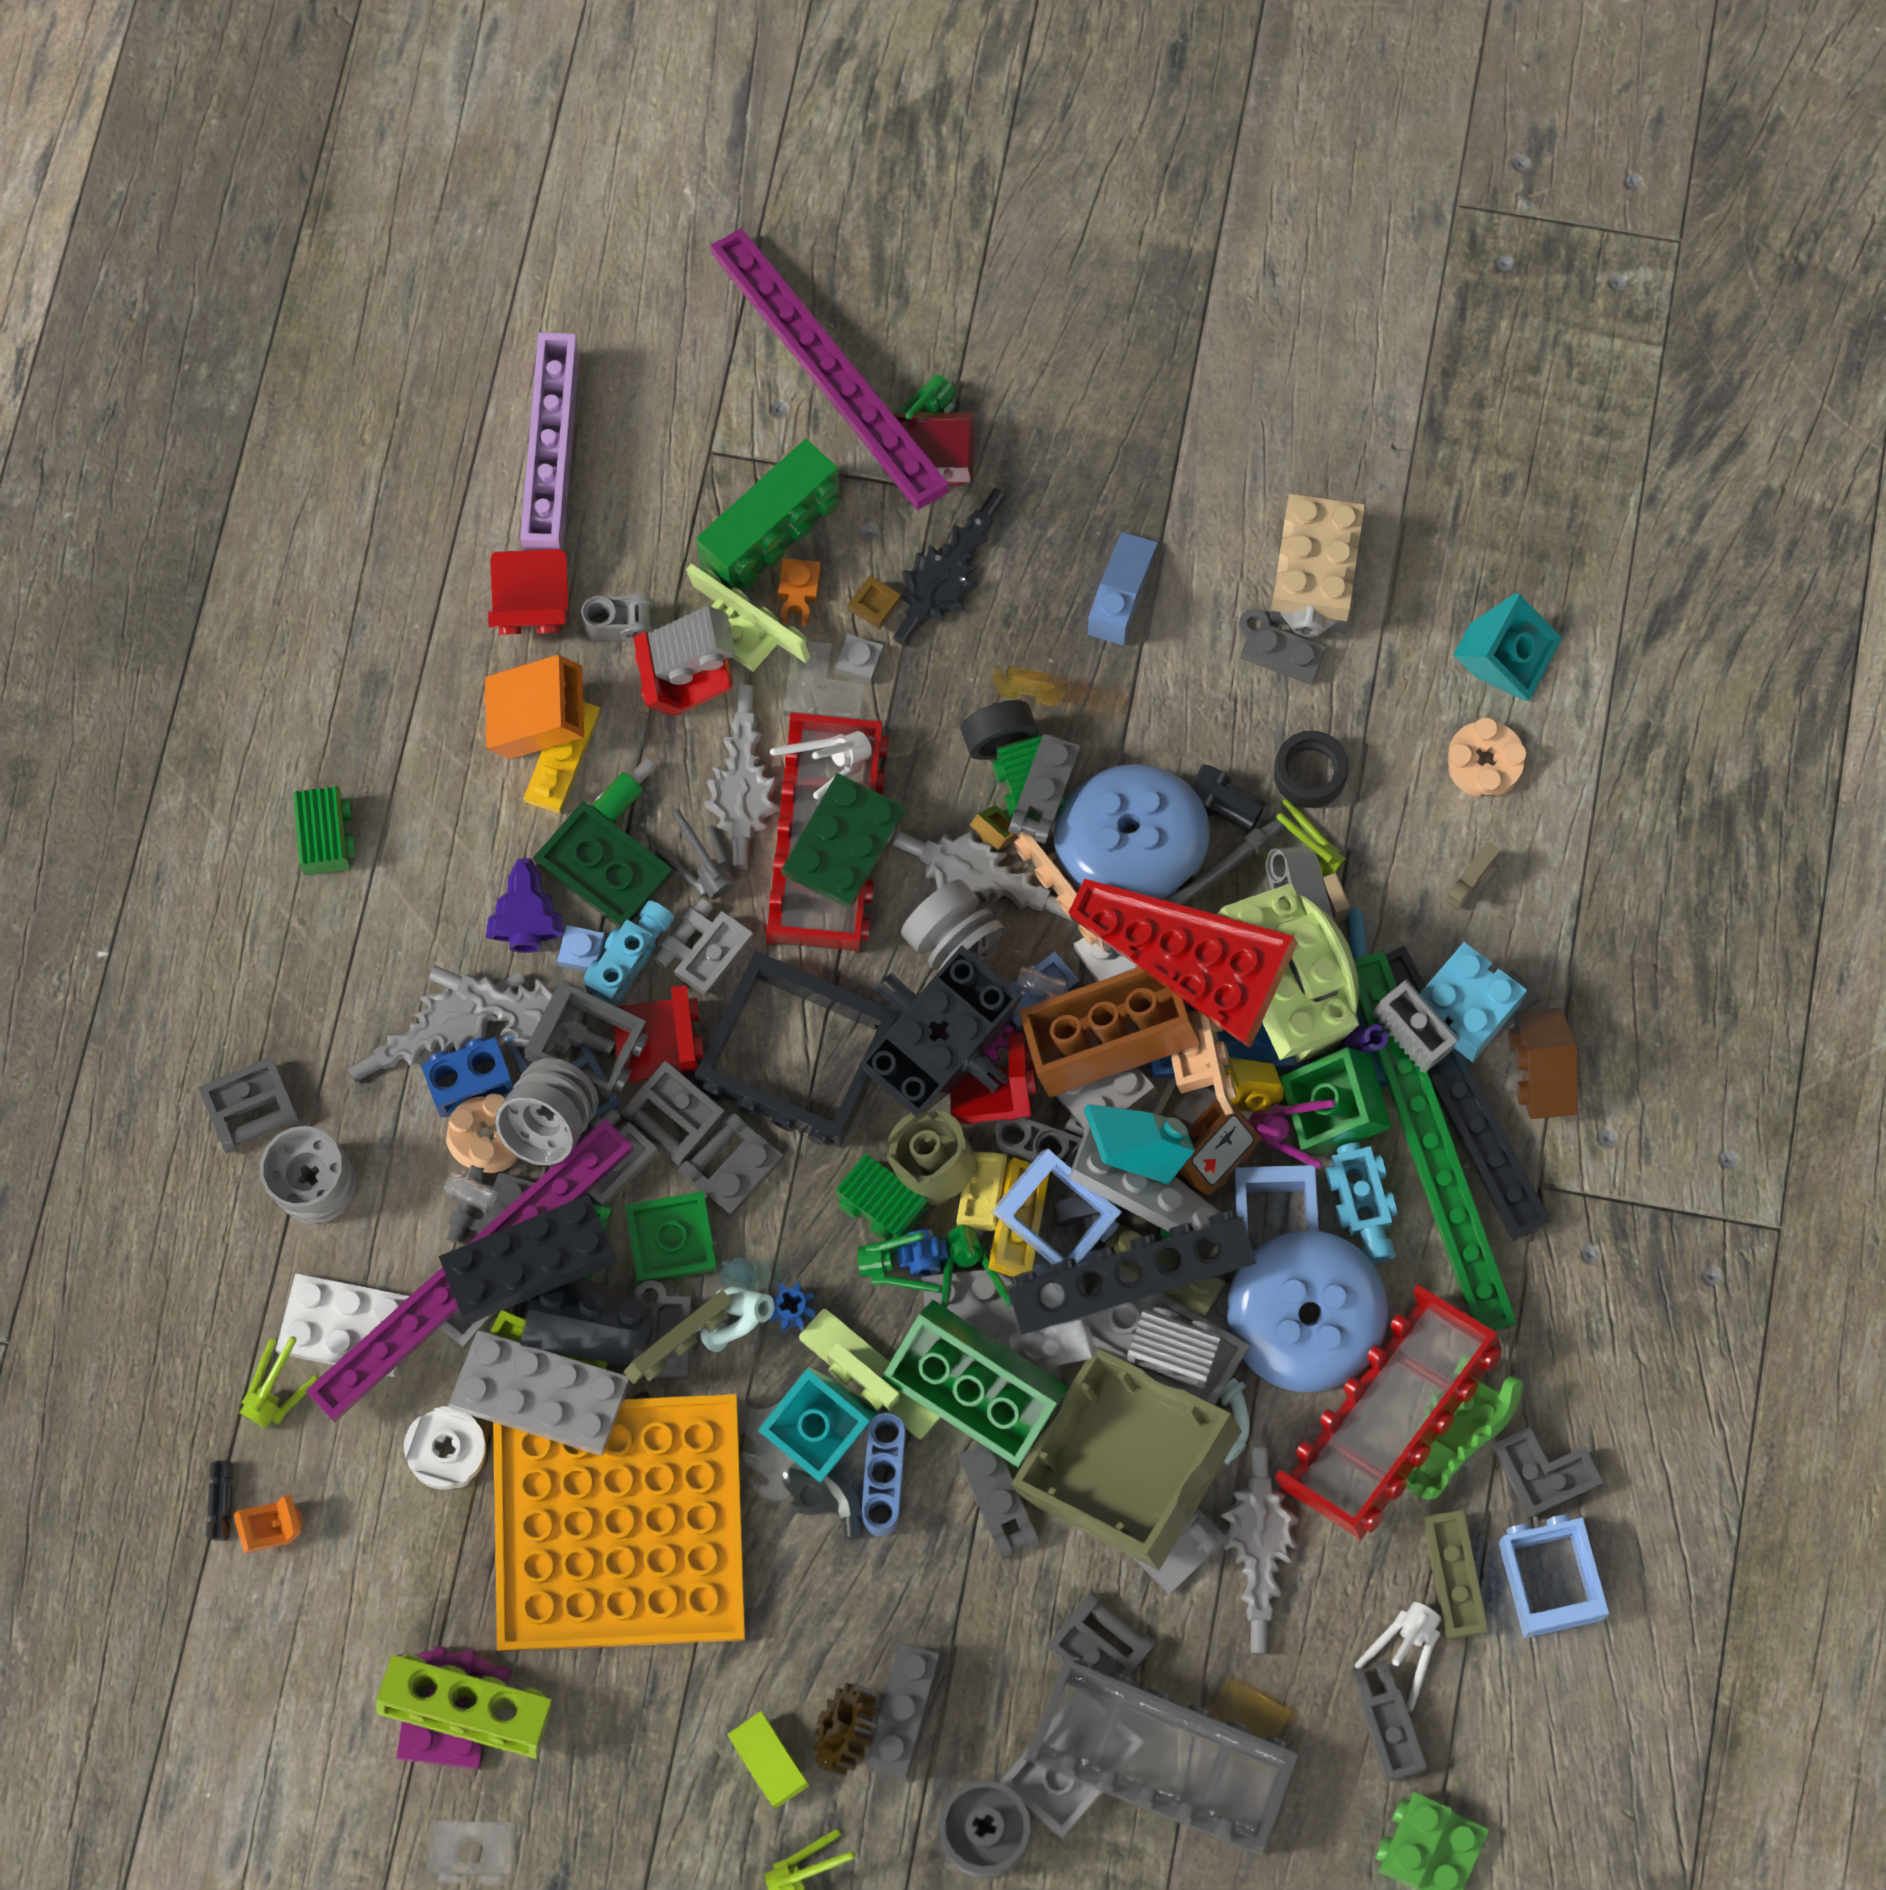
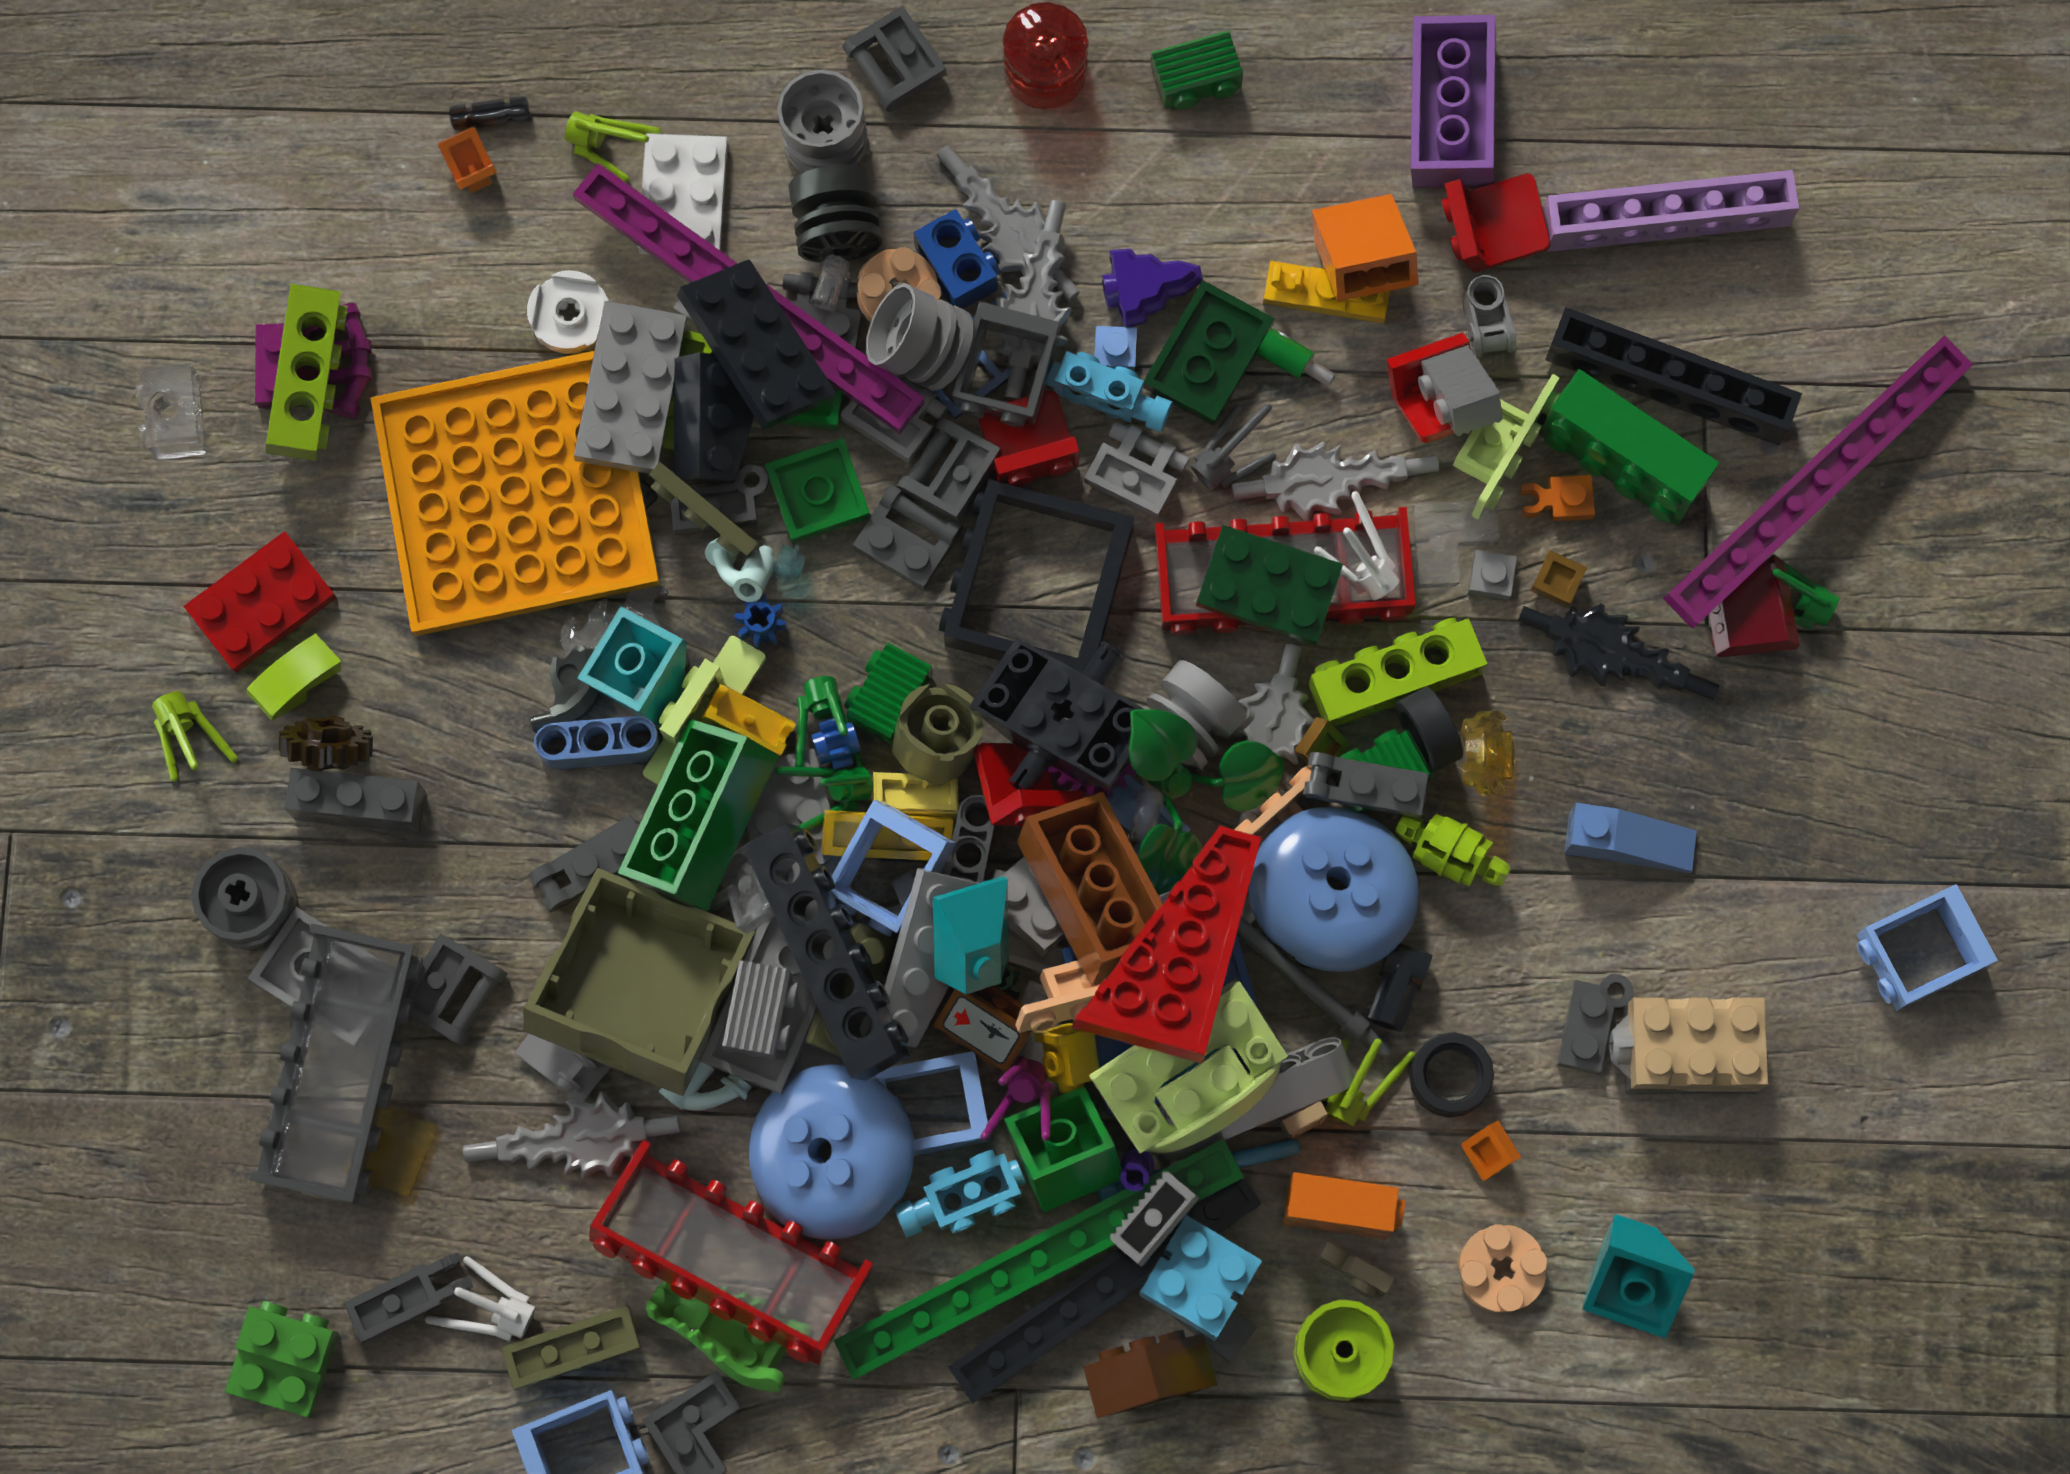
camera: 80 degrees right, 5 degrees up
(294, 977) = (1049, 76): none -> clear red wheel
(403, 1176) = (835, 213): none -> pearl dark grey wheel
(404, 609) = (1453, 100): none -> medium lavender brick
(683, 1788) = (260, 602): none -> red plate
(706, 471) = (1673, 376): none -> black brick
(887, 1330) = (746, 717): none -> yellow hinge
(935, 695) = (1343, 706): none -> lime brick
(990, 942) = (1156, 751): none -> green plant
(1111, 731) = (1453, 850): none -> lime piece
(1249, 333) = (1962, 929): none -> light blue window
(1383, 747) = (1490, 1150): none -> orange plate
(1419, 874) = (1342, 1206): none -> orange brick
(1546, 874) = (1359, 1329): none -> lime wheel

